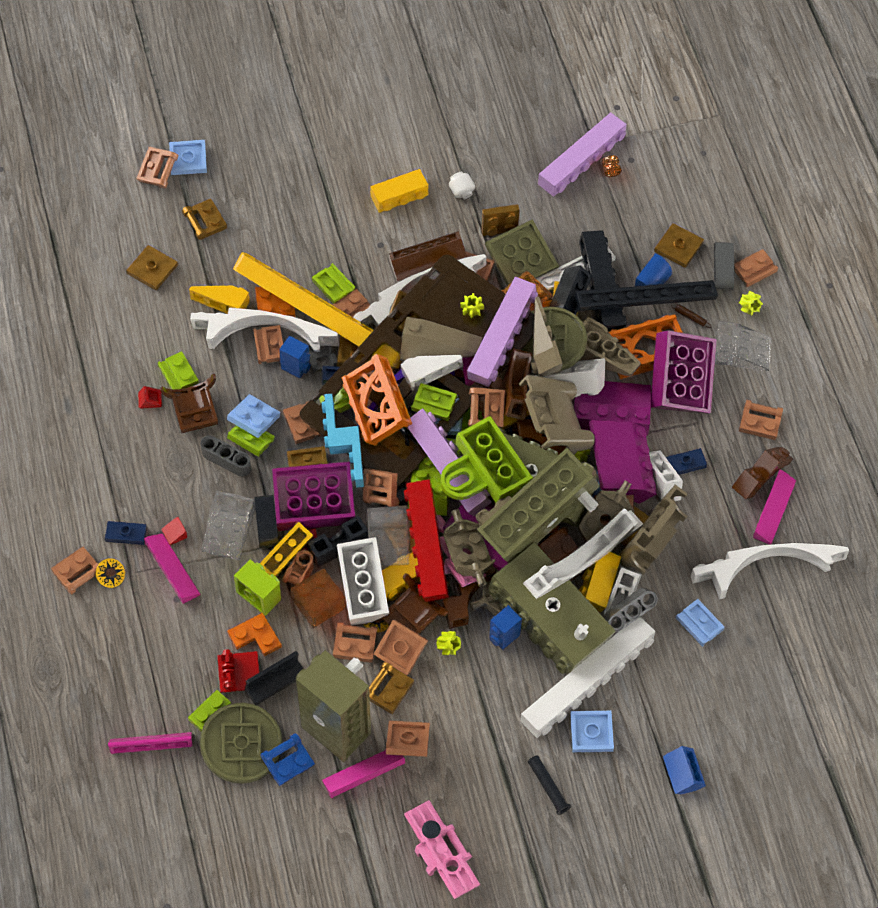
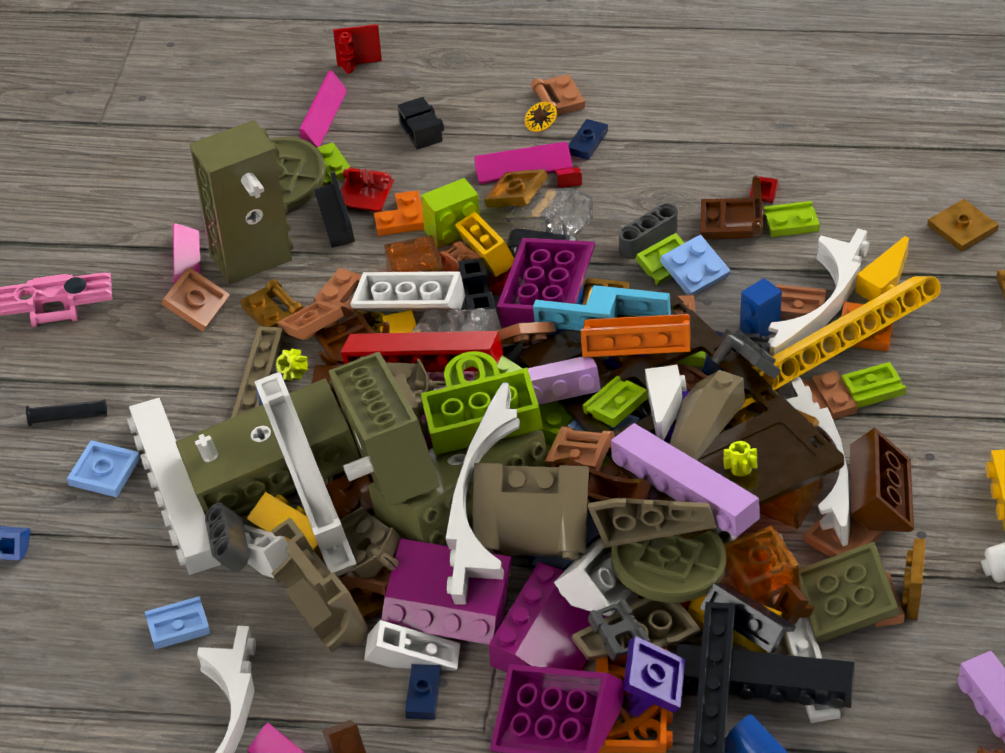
camera: 115 degrees right, 15 degrees down
(75, 740) = (357, 46): none -> red hinge
(149, 652) = (420, 122): none -> black piece
(209, 556) = (516, 188): none -> pearl gold plate
(355, 341) = (748, 349): none -> dark grey plate
(474, 663) = (259, 365): none -> dark tan plate
(546, 277) = (793, 604): none -> reddish brown tile
(609, 437) = (467, 553): none -> white slope
(622, 353) = (610, 632): none -> dark grey piece
(640, 328) = (652, 677): none -> dark purple bracket

